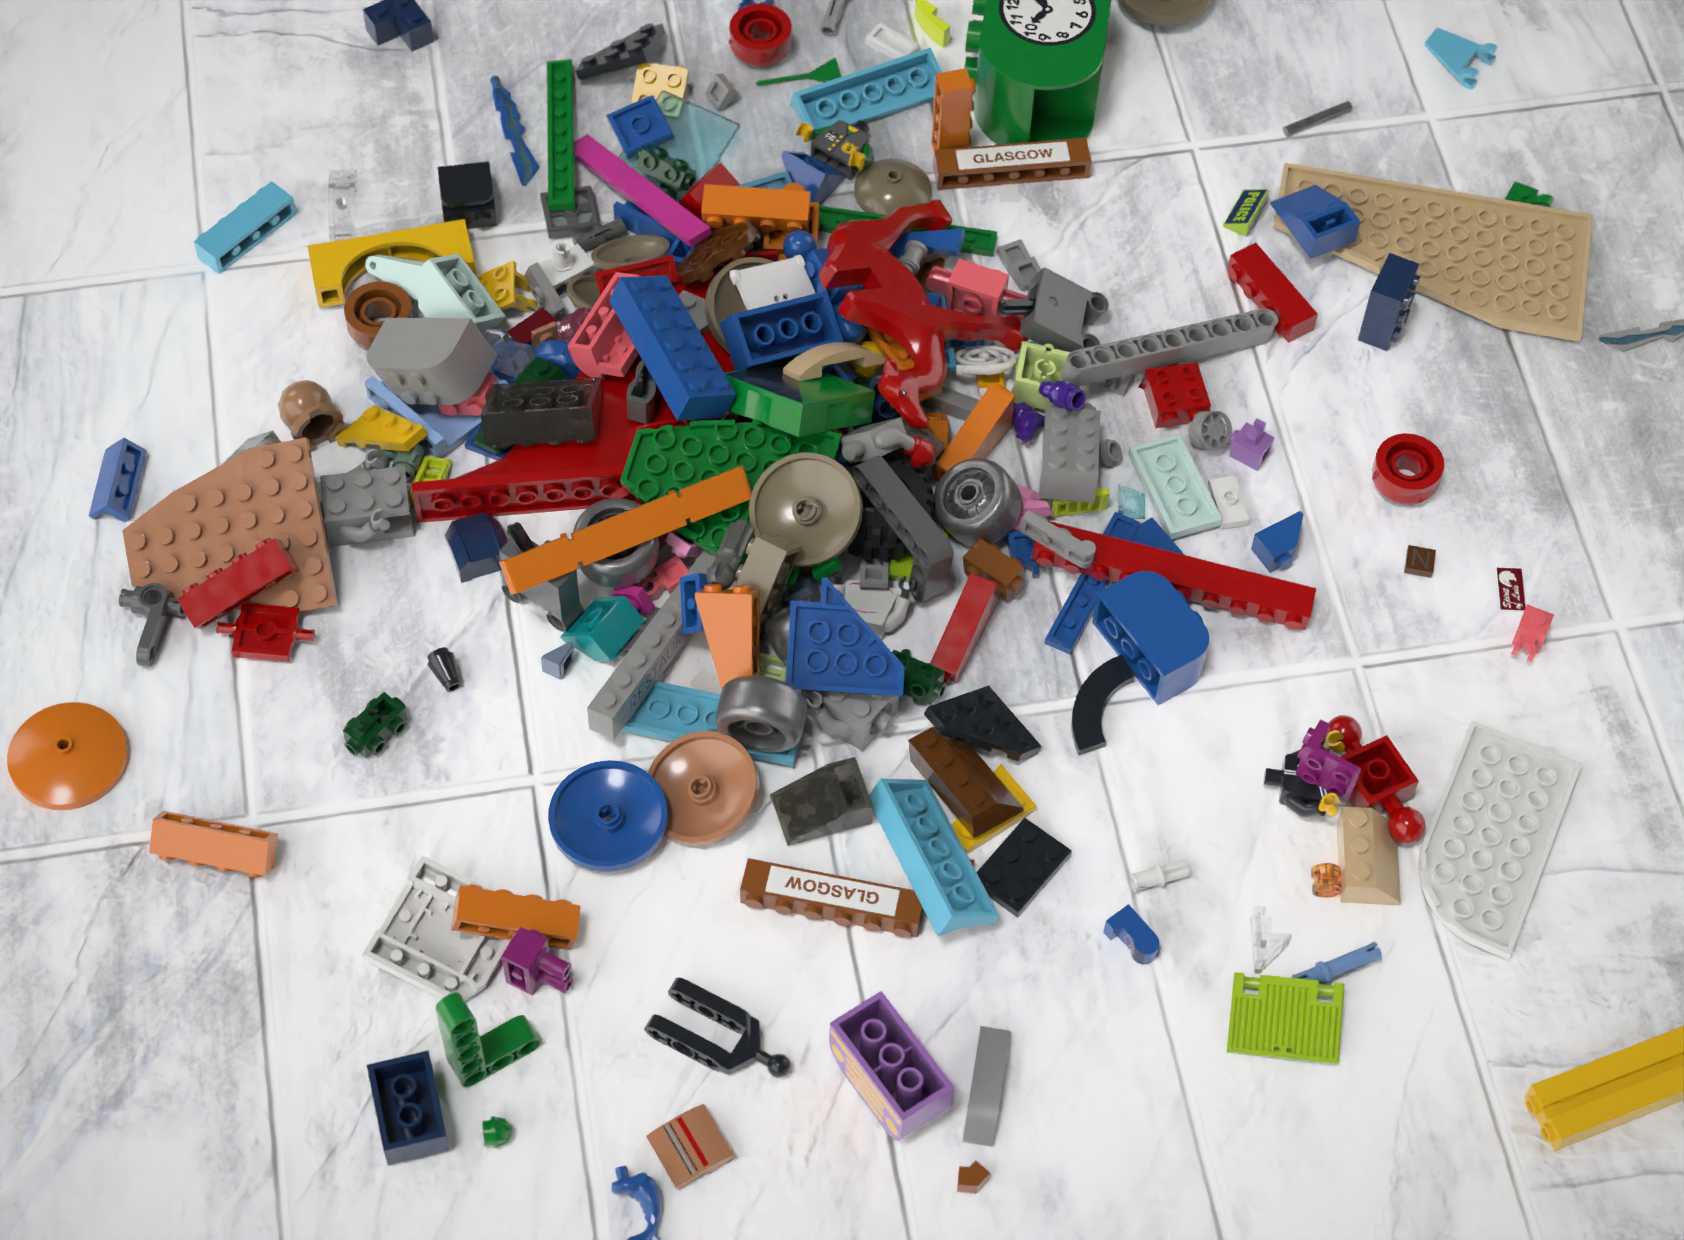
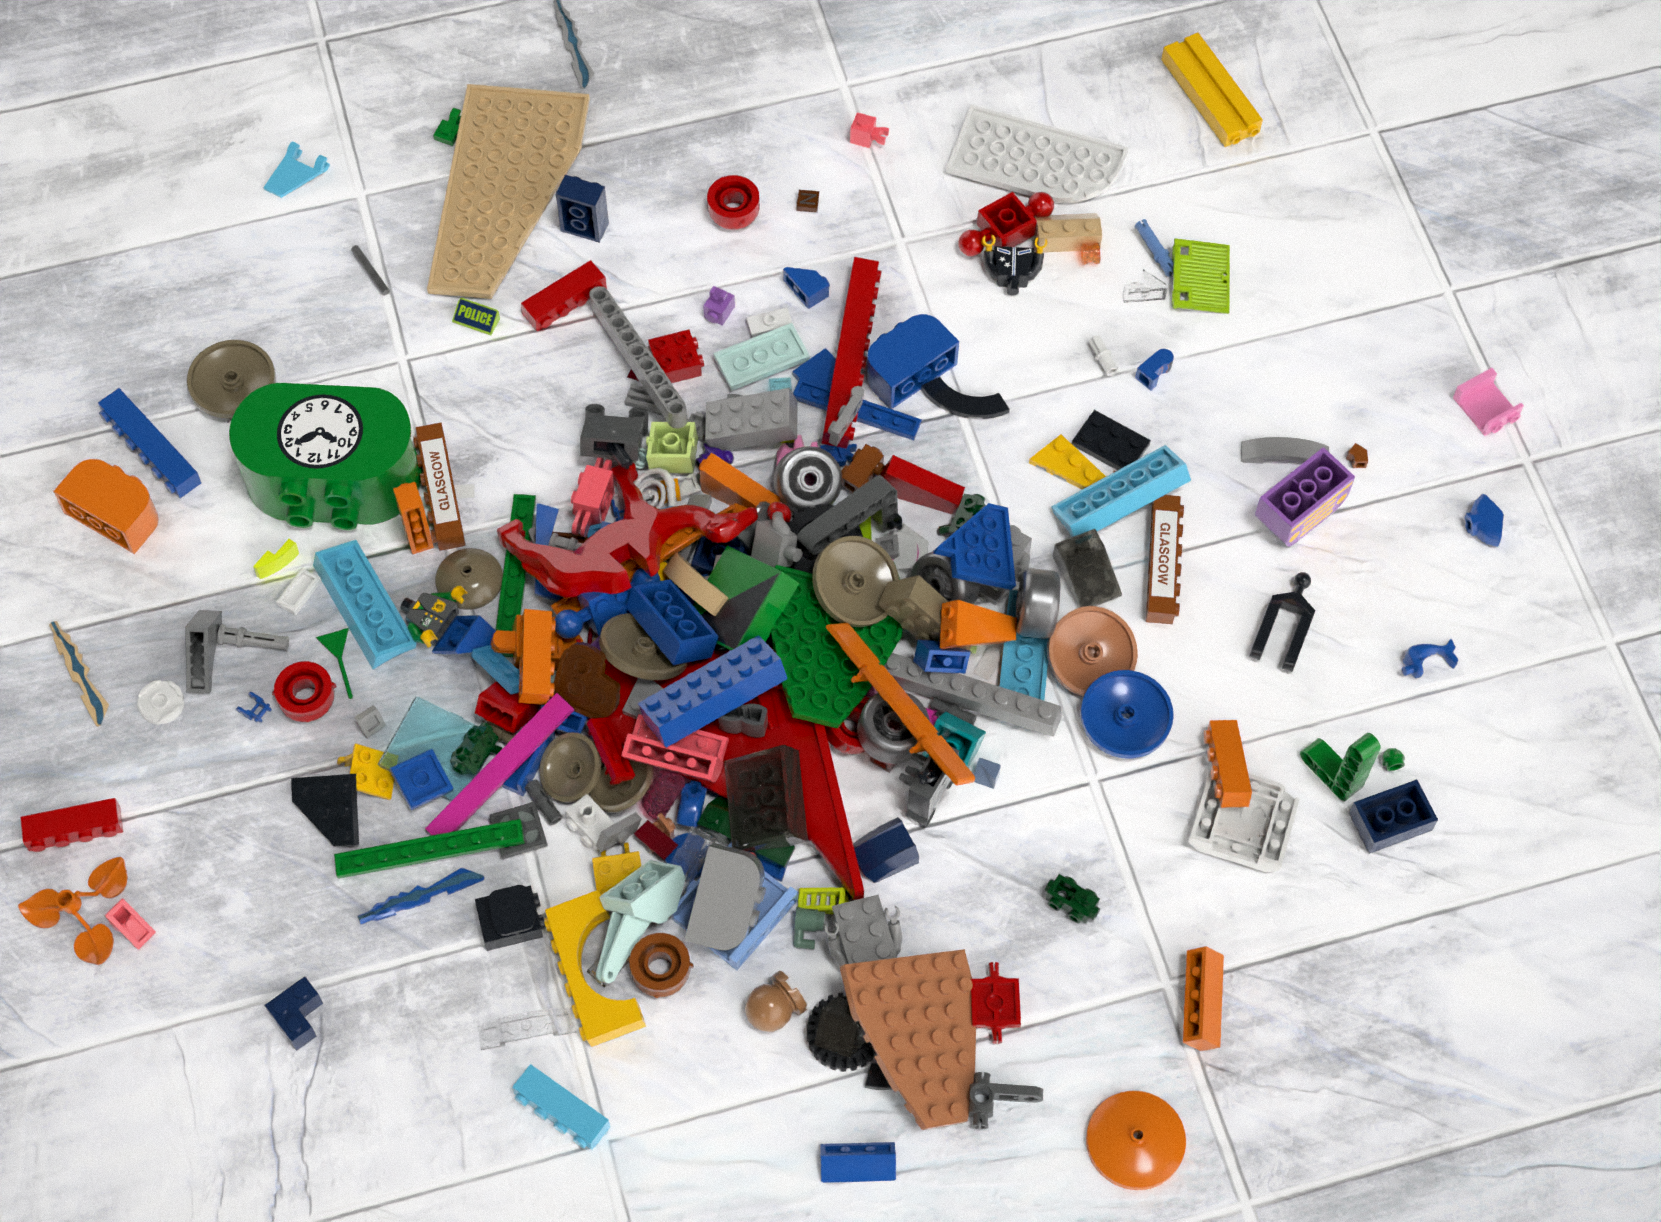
camera: 95 degrees left, 5 degrees up
(237, 583) = (967, 1021): red brick -> none
(384, 429) = (783, 940): yellow wing -> none
(445, 669) = (1008, 857): black cone -> none
(529, 963) = (1263, 746): magenta brick -> none
(690, 1146) = (1374, 631): nougat slope -> none
(730, 554) = (905, 633): dark grey piece -> none
(772, 281) = (624, 630): white door -> none
(963, 781) = (1053, 478): reddish brown slope -> none
(984, 722) = (1000, 469): black plate -> none
(1018, 262) = (549, 475): light grey slope -> none
(1063, 394) = (703, 421): dark purple animal -> none
(1208, 430) = (710, 331): light grey wheel -> none
(1317, 220) = (494, 260): blue slope -> none
(1323, 767) = (1010, 248): magenta bracket -> none
(1511, 589) = (822, 147): dark red sticker -> none

